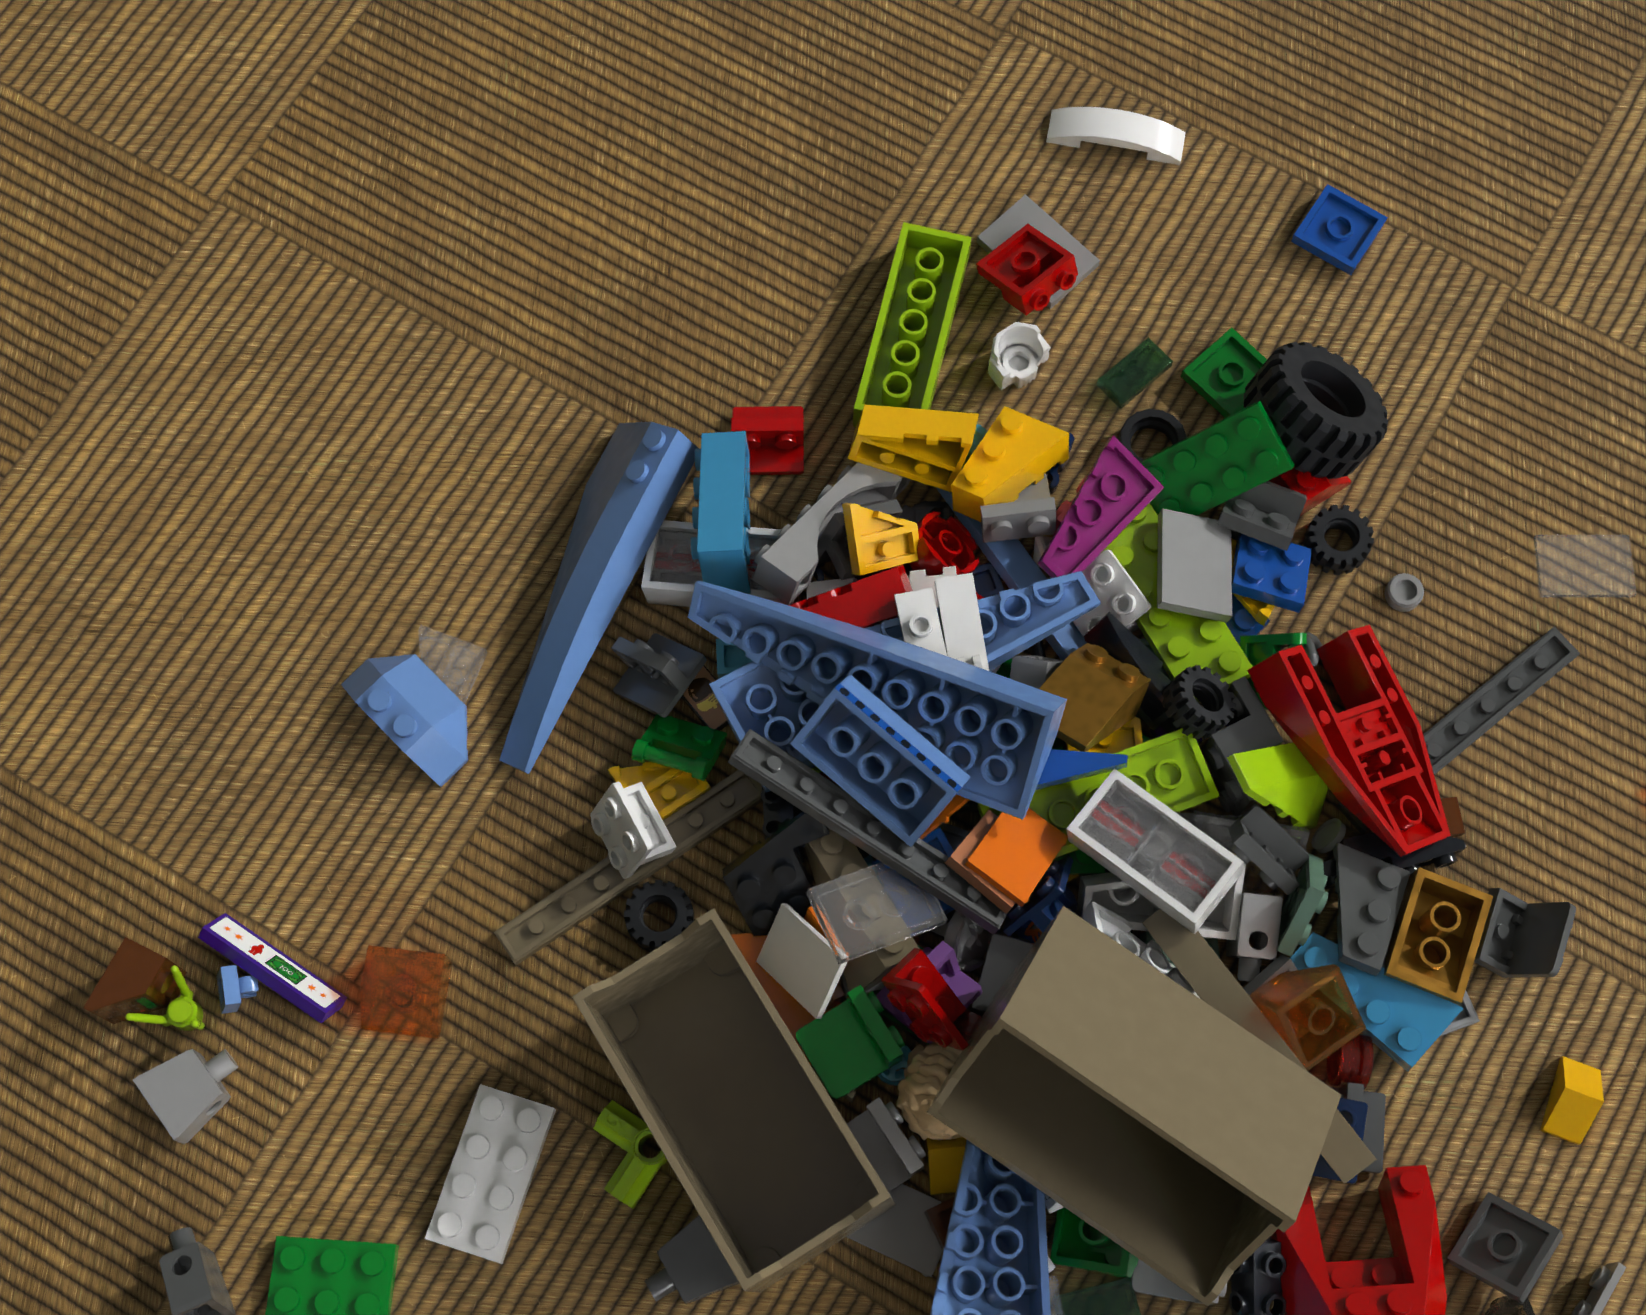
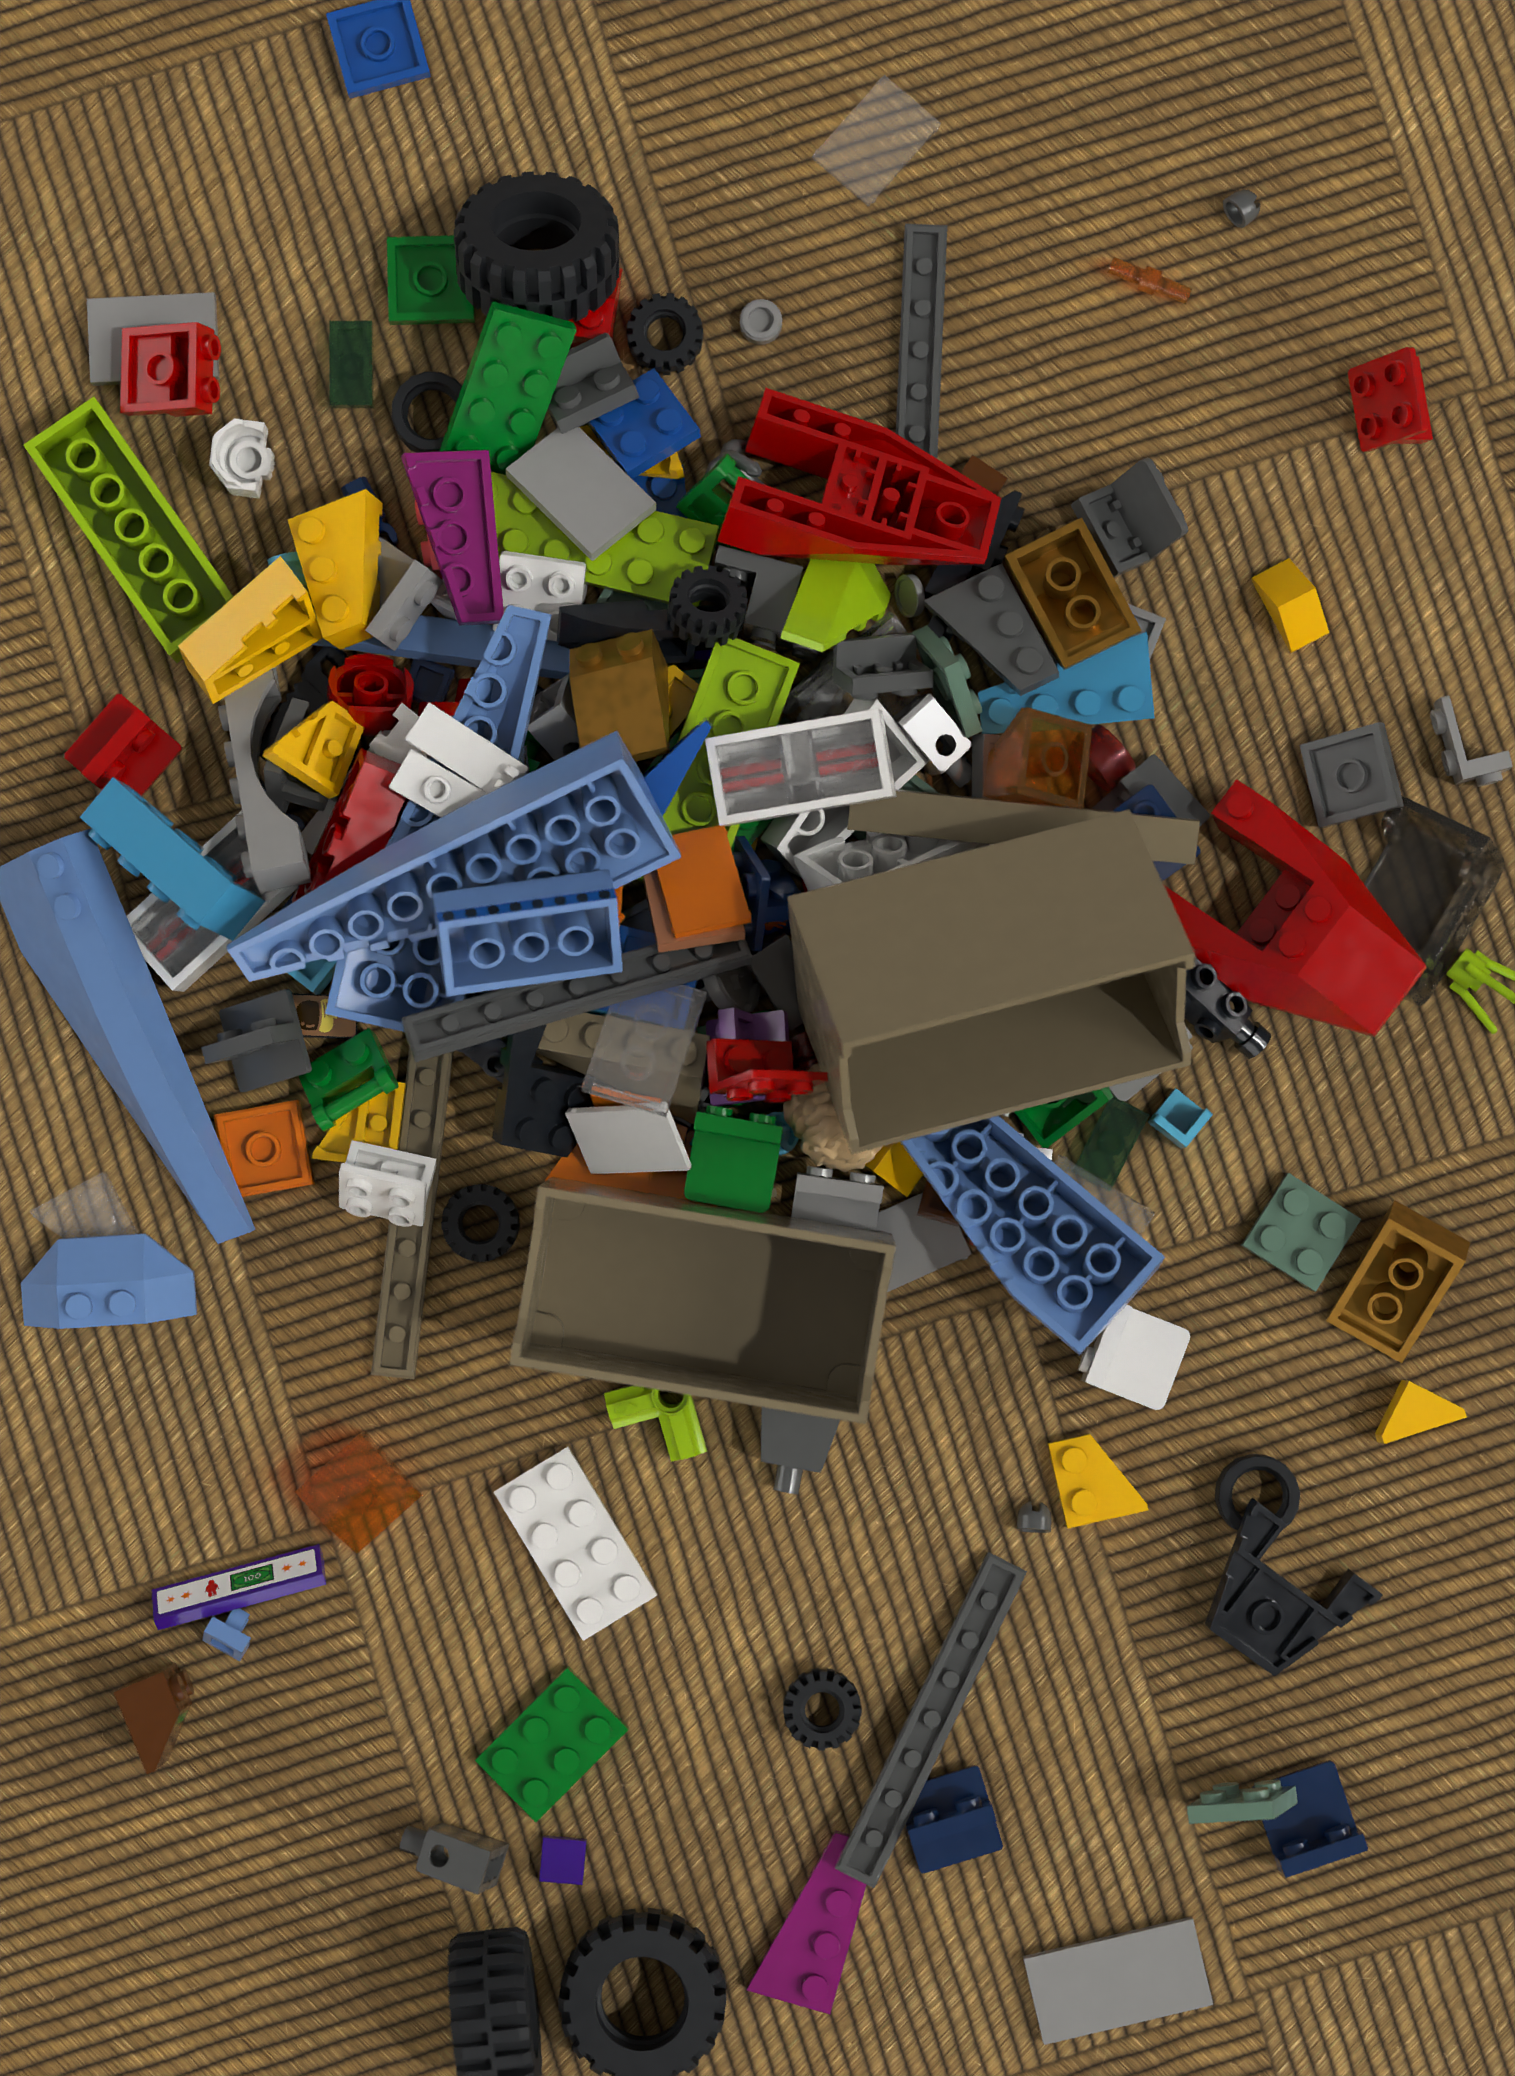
camera: 50 degrees left, 15 degrees up
(181, 1012) = (211, 1694): lime plant -> none
(187, 1091) = (286, 1741): light grey torso -> none
(589, 737) = (266, 1147): none -> orange tile
(1117, 129) = (97, 153): white slope -> none

